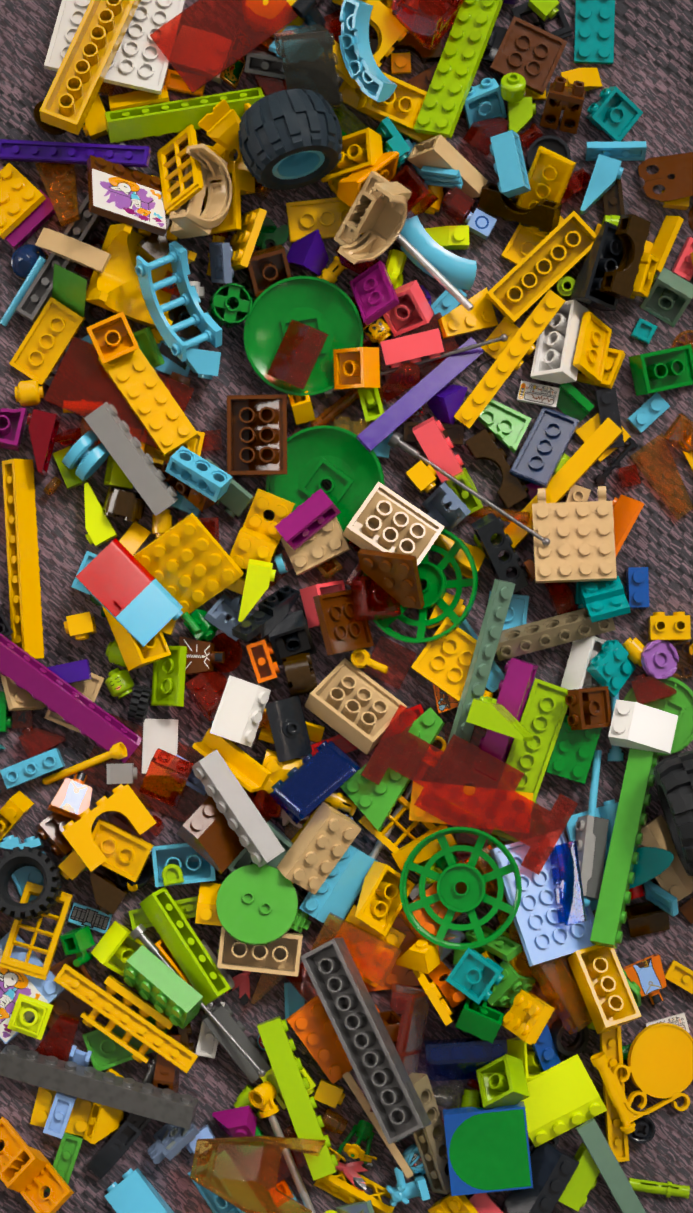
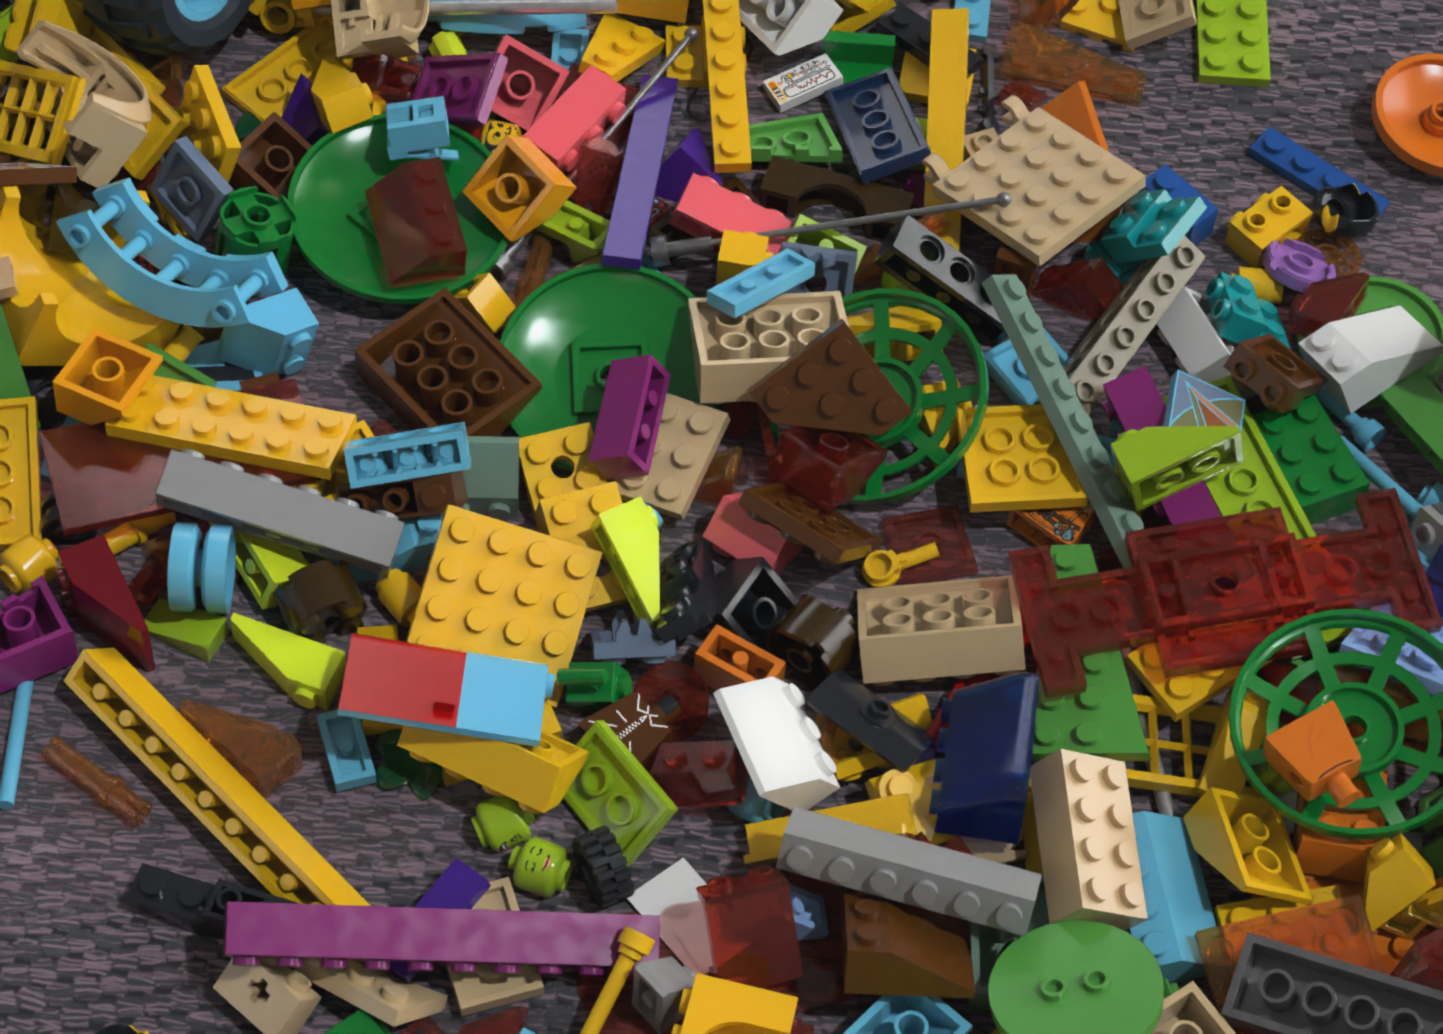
camera: 40 degrees left, 30 degrees down
(52, 486) = (179, 667): clear orange tile -> none
(52, 546) = (250, 745): none -> clear orange slope
(80, 625) = (403, 818): yellow brick -> none
(319, 258) = (340, 96): none -> yellow slope
(335, 307) = (419, 130): none -> medium azure piece
(411, 500) = (760, 283): none -> medium azure plate
(427, 892) = (1316, 755): none -> orange torso
(537, 706) = (1201, 404): none -> tile

